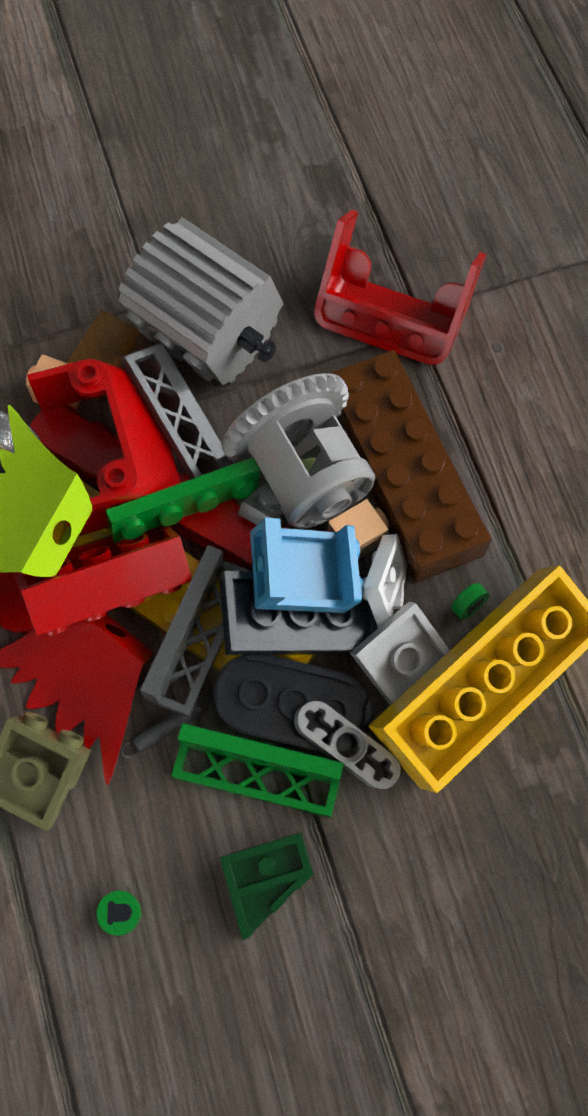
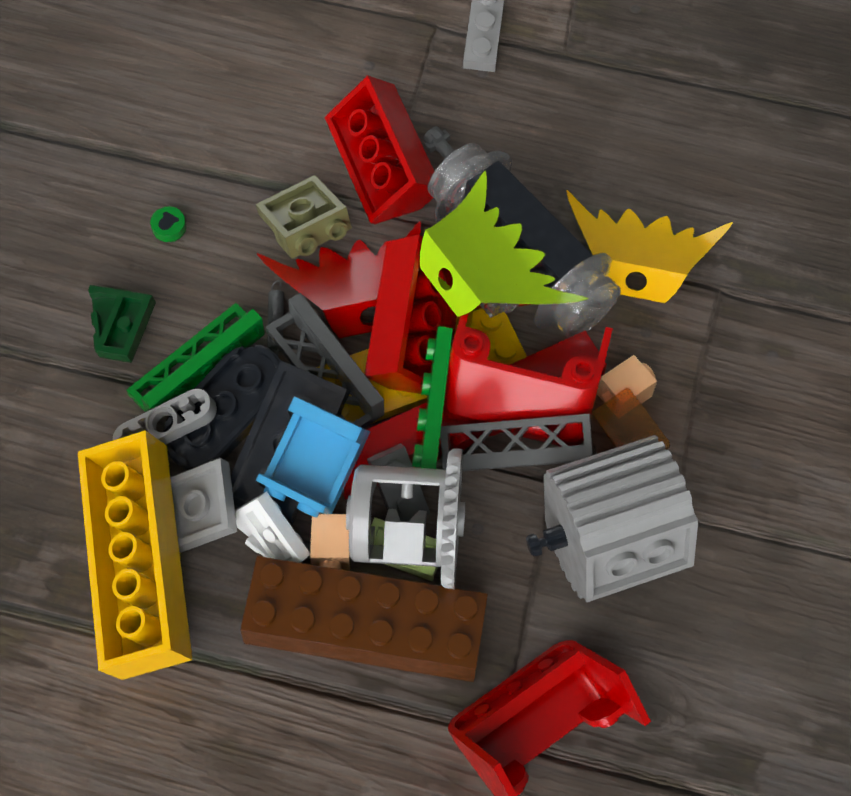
camera: 120 degrees right, 5 degrees down
(470, 601) = (209, 590): green tile -> none

